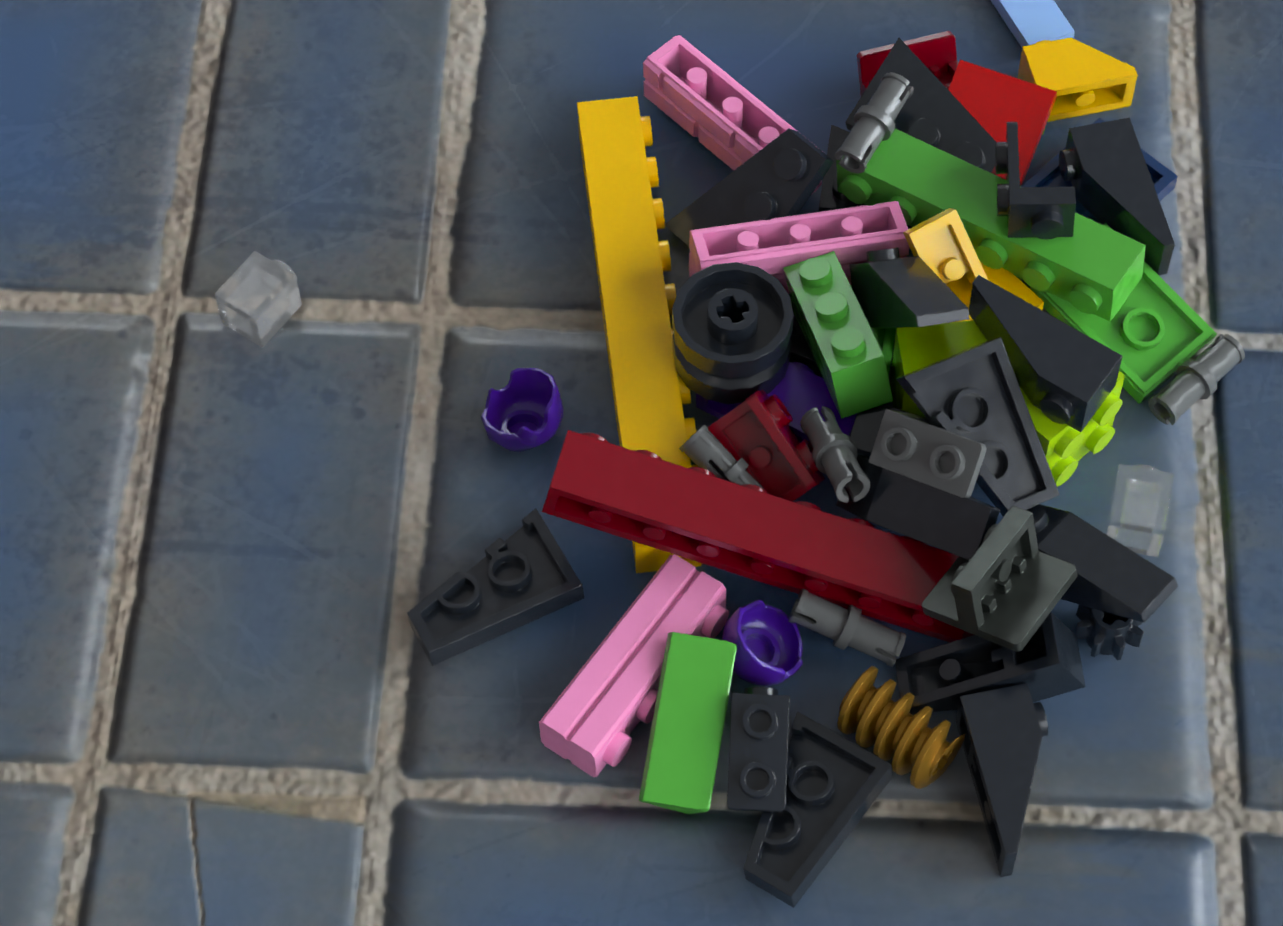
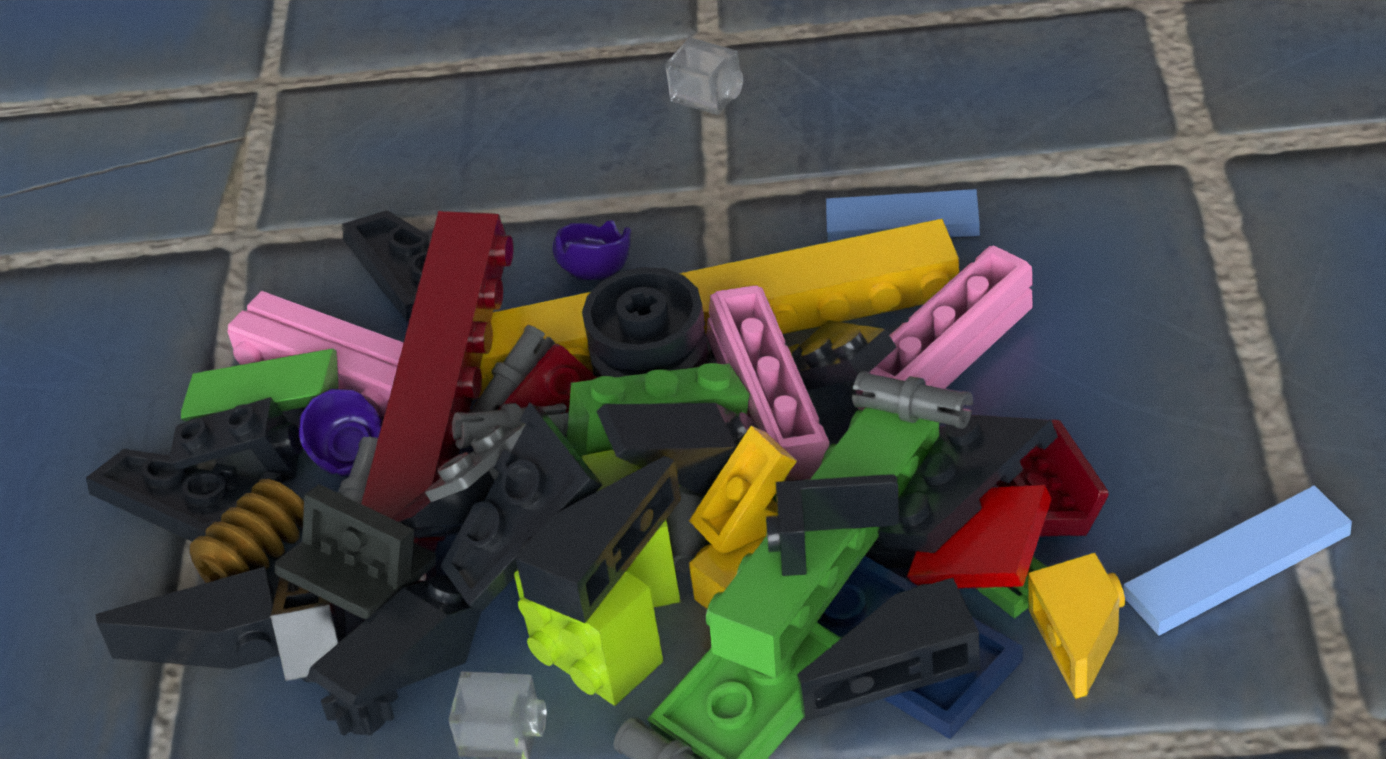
camera: 90 degrees right, 15 degrees down
(523, 155) = (870, 214): none -> medium blue tile

